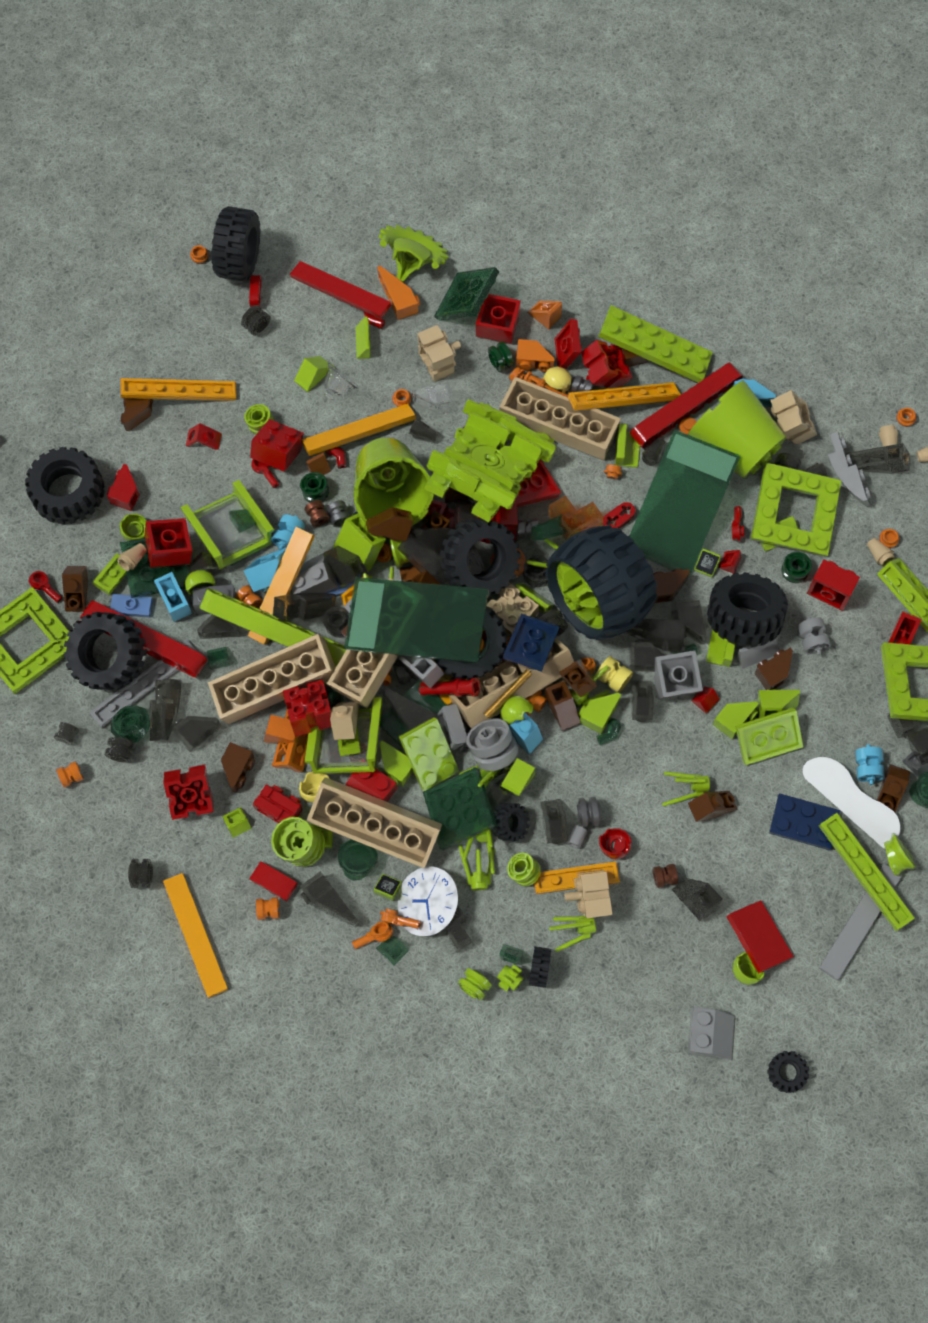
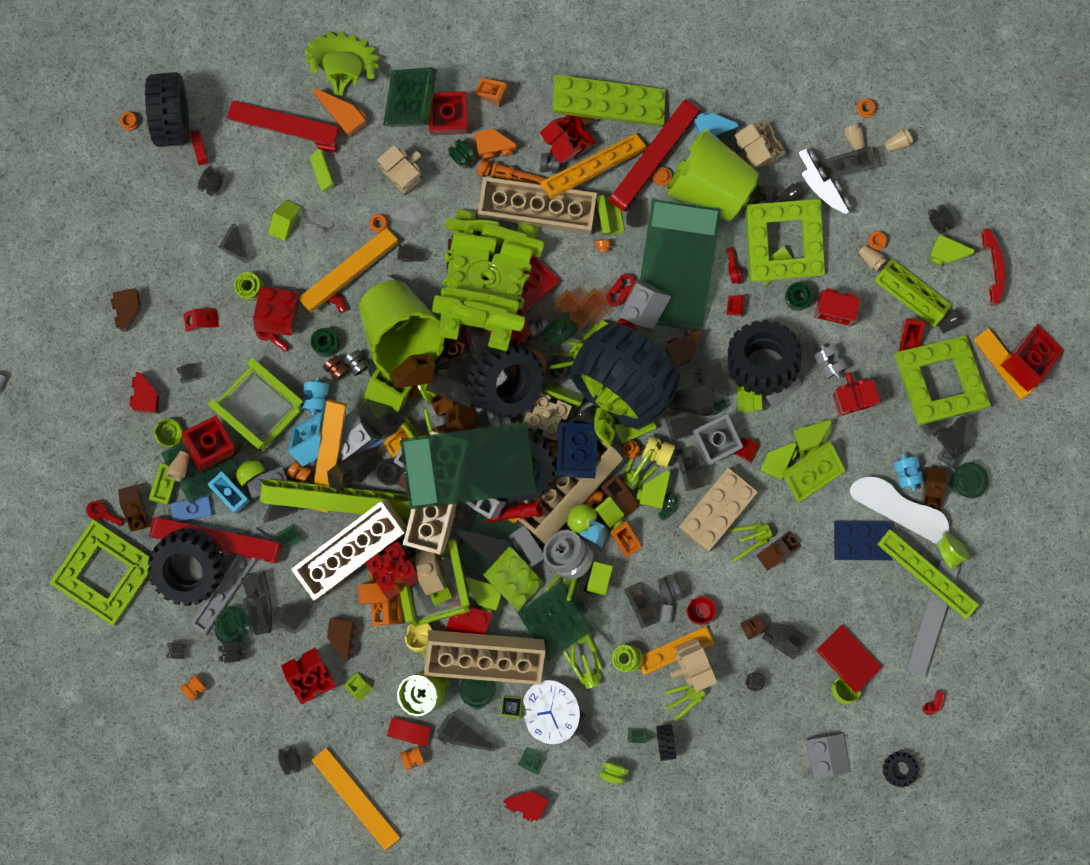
camera: 15 degrees left, 15 degrees up
(61, 463) = (63, 400): black tyre -> none
(173, 480) = (187, 373): none -> clear smoke wheel
(177, 389) = (160, 278): light orange tile -> none
(241, 519) = (268, 397): clear green slope -> none
(256, 379) = (233, 244): none -> clear smoke slope
(277, 805) = (391, 663): red brick -> none
(318, 464) = (321, 318): dark orange slope -> none
(374, 990) = (528, 803): none -> red slope
(380, 932) = (517, 750): orange plate -> none
(390, 916) = (523, 734): orange plate -> none
(508, 693) = (569, 506): pearl gold bar -> none
(510, 977) = (642, 758): lime gear -> none
(519, 822) = (611, 619): black tyre -> none
(547, 718) = (609, 513): none -> lime slope
(556, 749) = (625, 539): none -> orange slope
(558, 378) = (524, 164): light yellow hair -> none
(566, 628) = (603, 426): none -> lime slope
(568, 344) = (524, 125): red plate -> none
(579, 678) = (628, 470): reddish brown slope -> none
(596, 648) = (628, 433): none -> lime plate
(642, 529) = (644, 304): none -> light grey slope
(656, 930) = (757, 680): none -> clear smoke wheel
(659, 747) = (717, 510): none -> tan brick
(707, 562) = (715, 314): slope -> none
(775, 671) = (804, 405): reddish brown slope -> none
(832, 674) = (855, 396): none -> red brick
(842, 1015) = (935, 705): none -> red arm

